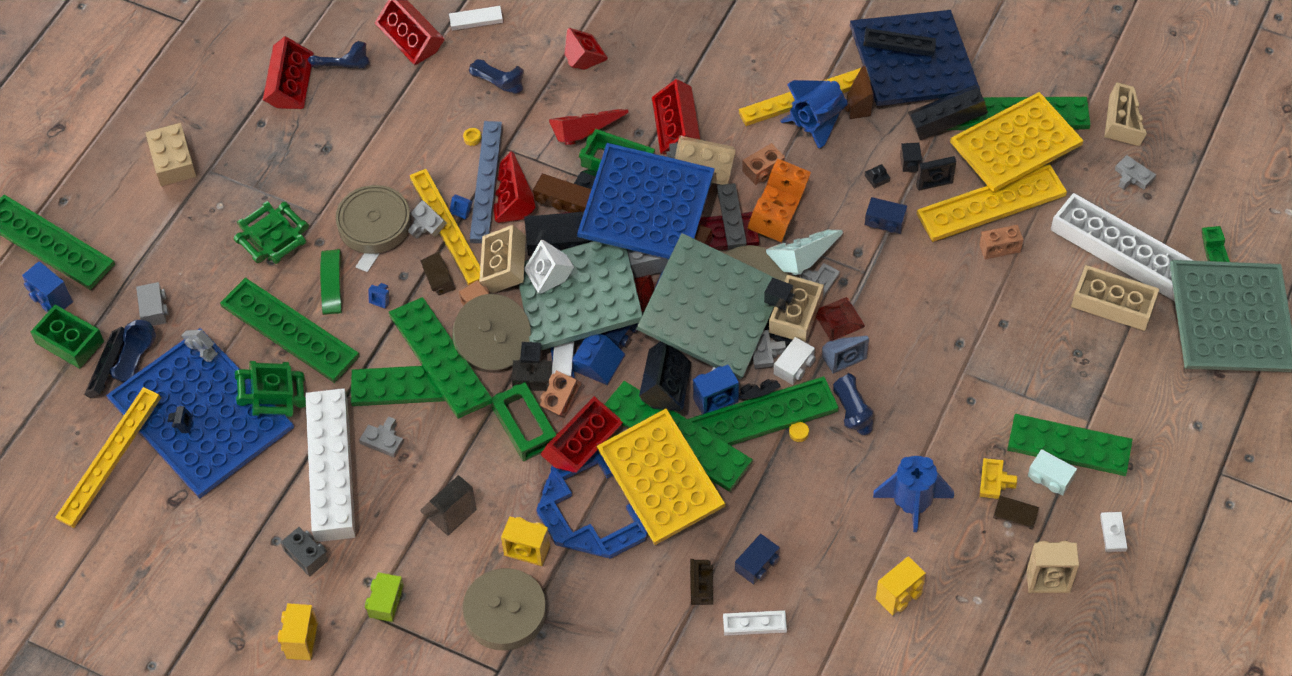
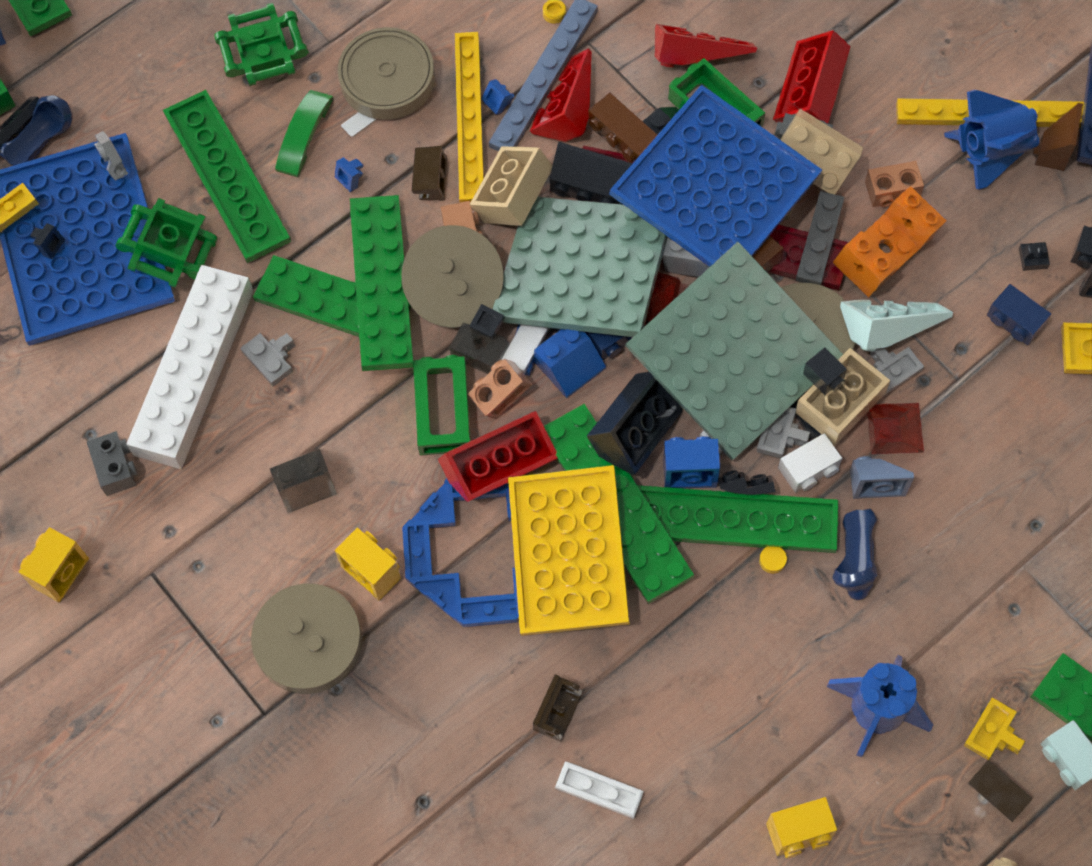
camera: 25 degrees right, 10 degrees up
(152, 304) = (86, 82): light grey brick -> none
(384, 597) = (175, 561): lime brick -> none
(425, 220) = (447, 99): light grey hinge -> none
(548, 267) = (558, 219): white slope -> none
(757, 559) = (639, 709): dark blue brick -> none

